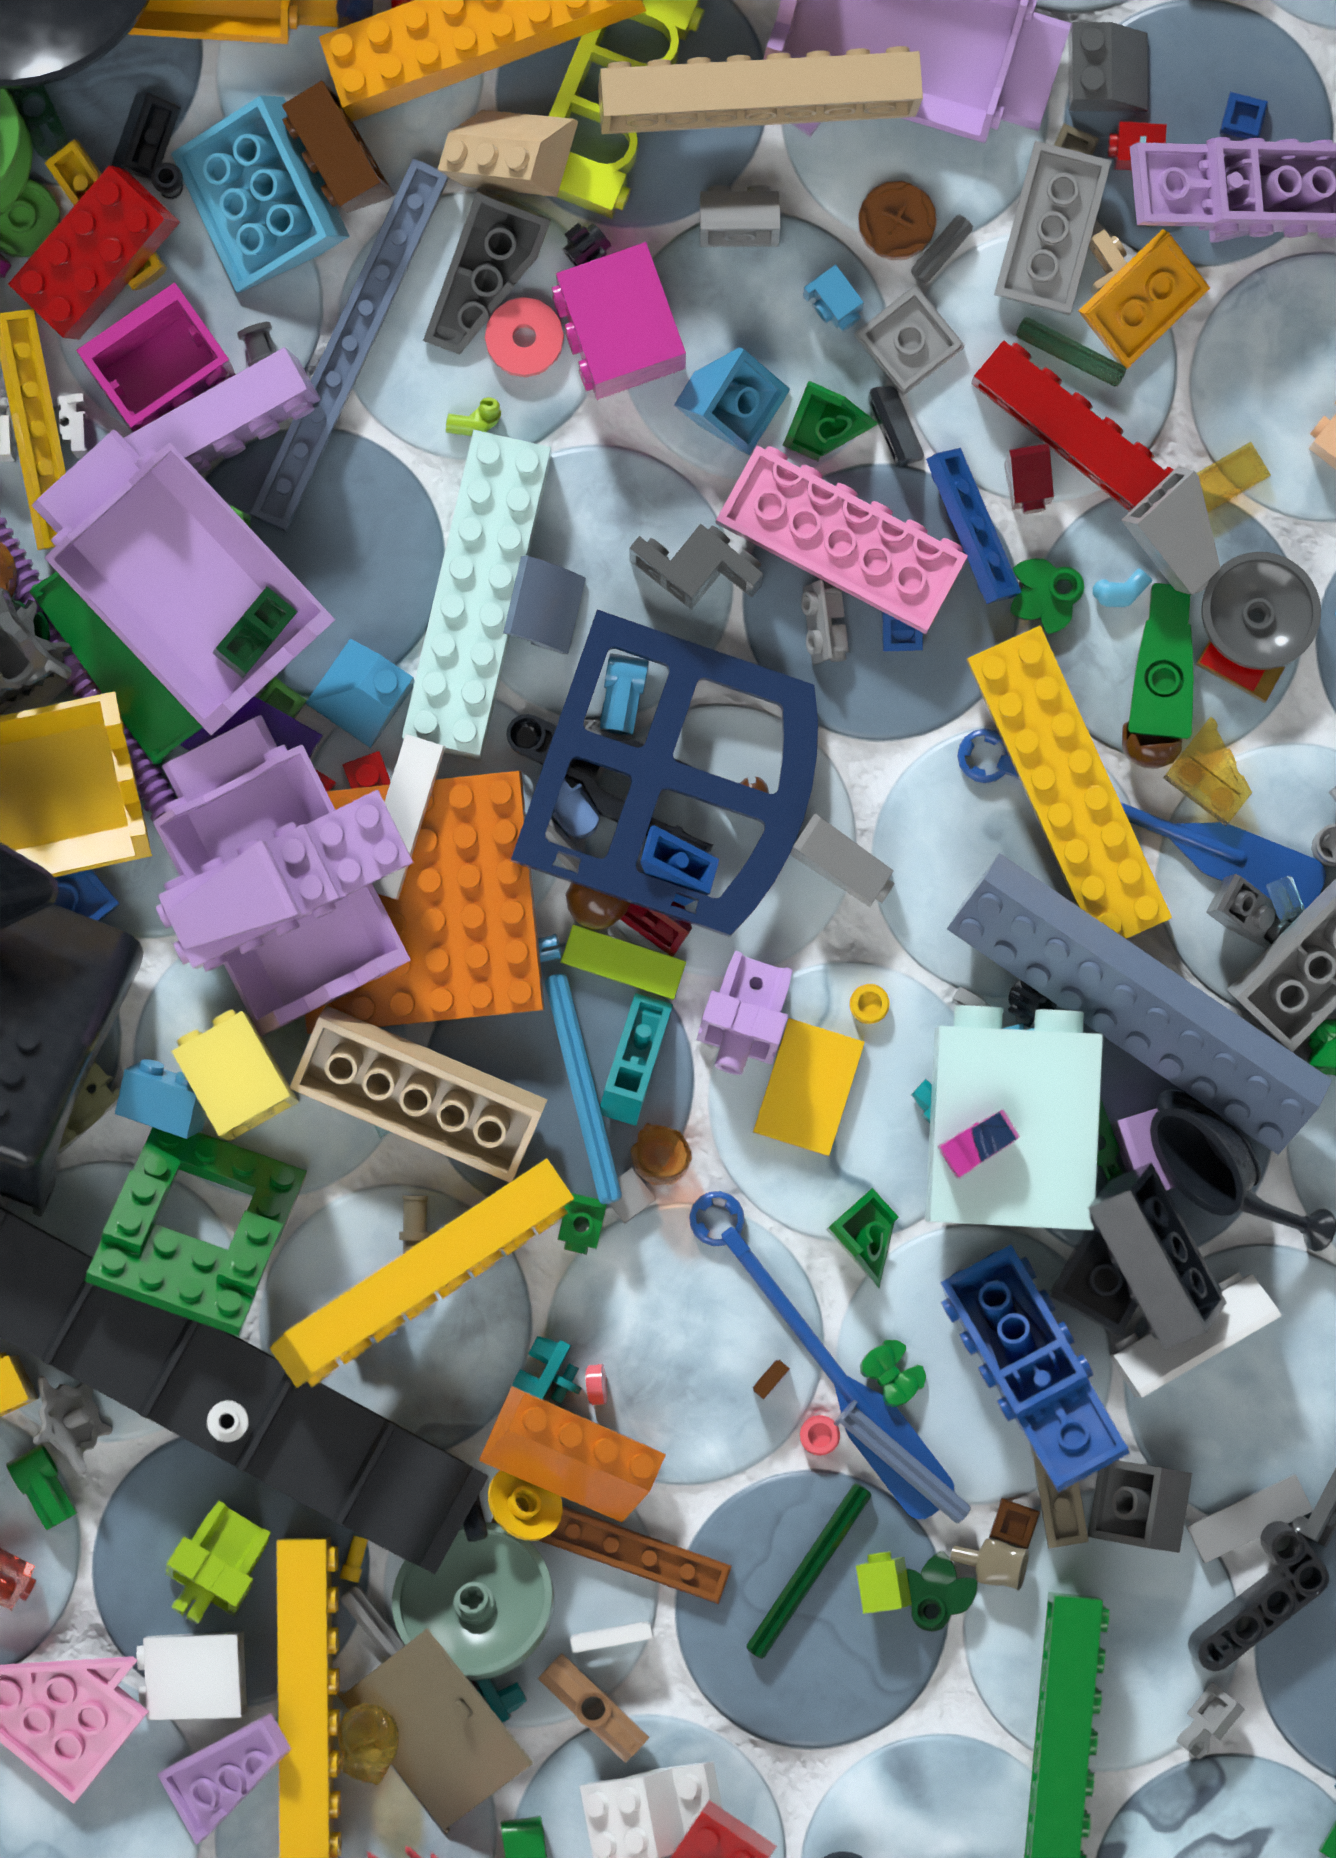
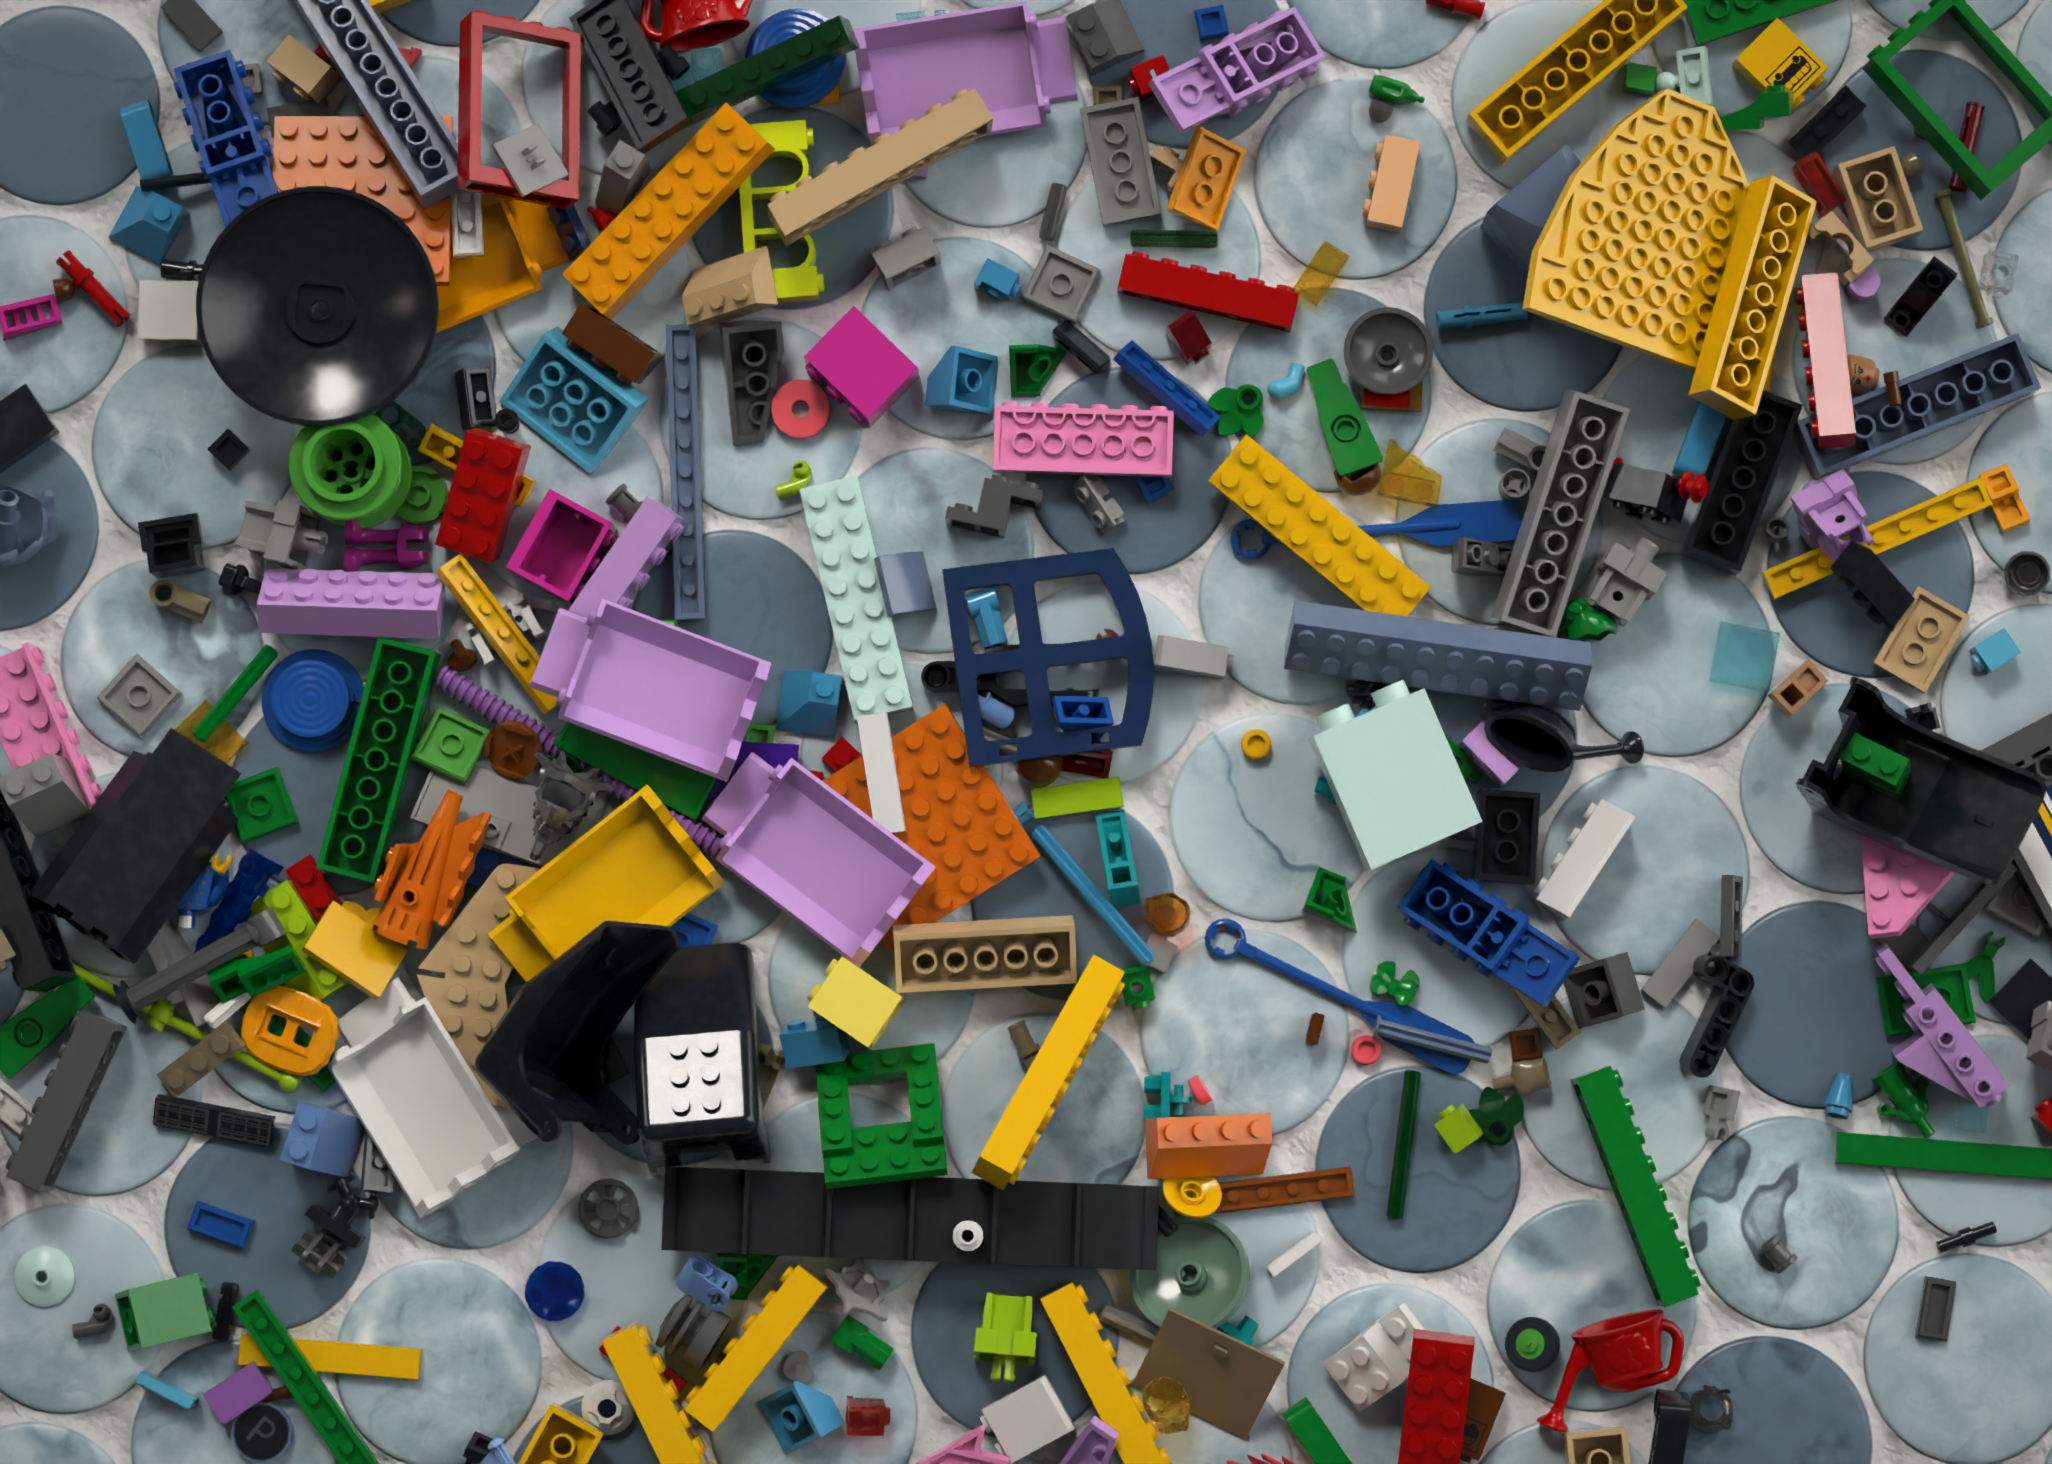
camera: 20 degrees left, 0 degrees up
(254, 632) = (721, 698): dark green slope -> none
(281, 881) = (823, 856): lavender wedge -> none
(352, 1569) = (1097, 1295): yellow piece -> none
(585, 244) = (812, 327): black gear -> none
(613, 1727) = (1325, 1312): medium nougat piece -> none
(745, 1019) = (1180, 795): lavender piece -> none
(808, 1087) = (1243, 820): yellow tile -> none
(897, 220) = (1012, 207): dark orange tile -> none
(965, 997) = (1320, 708): light grey tile -> none
(978, 1143) = (1377, 801): leg -> none
(1157, 1256) = (1533, 818): brick -> none
(1177, 531) = (1305, 325): light grey slope -> none
(1285, 898) = (1499, 536): clear light blue tile -> none

